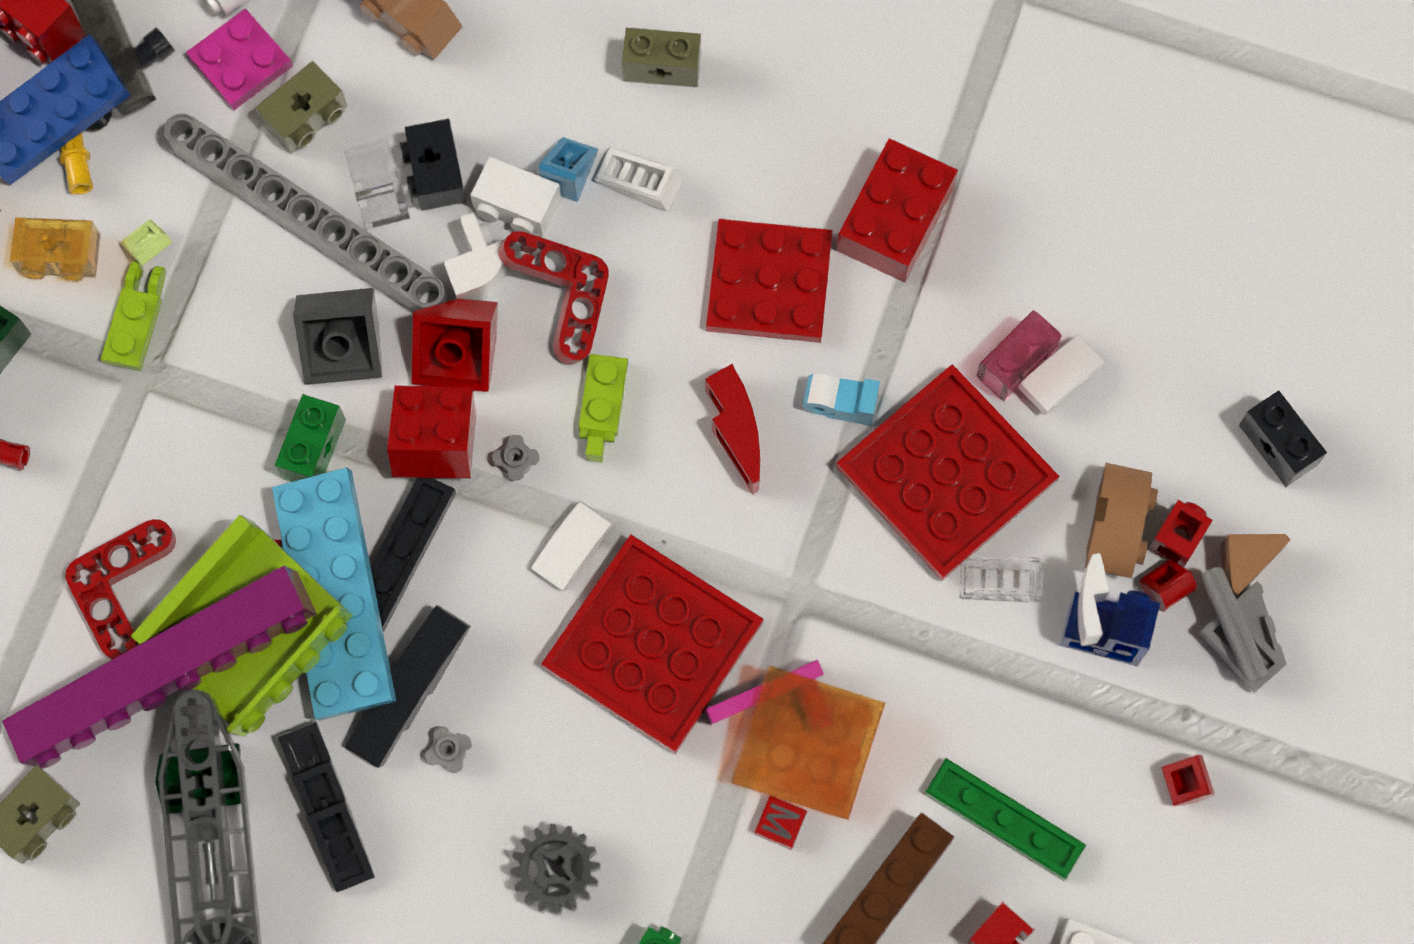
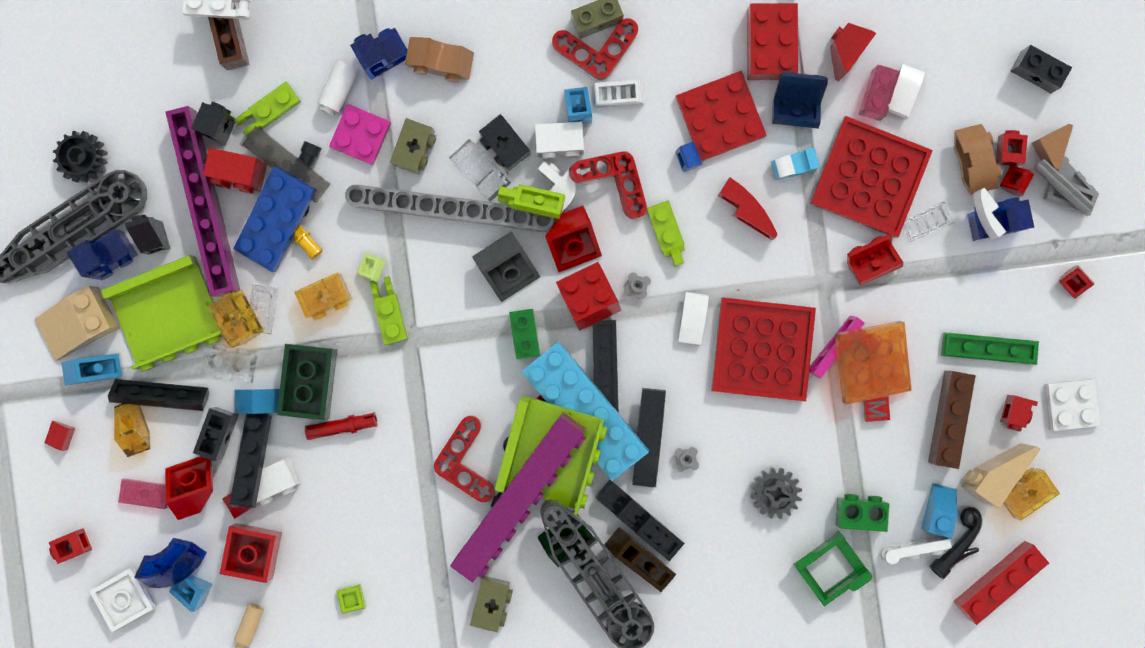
camera: 25 degrees left, 15 degrees up
(292, 866) = (639, 559): none -> dark brown slope
(425, 253) = (533, 200): none -> lime hinge
(642, 116) = (603, 55): none -> red beam
(691, 311) = (688, 157): none -> blue brick
(889, 592) = (874, 260): none -> red bracket
(893, 305) = (798, 100): none -> dark blue bracket
(1006, 271) = (847, 47): none -> red slope

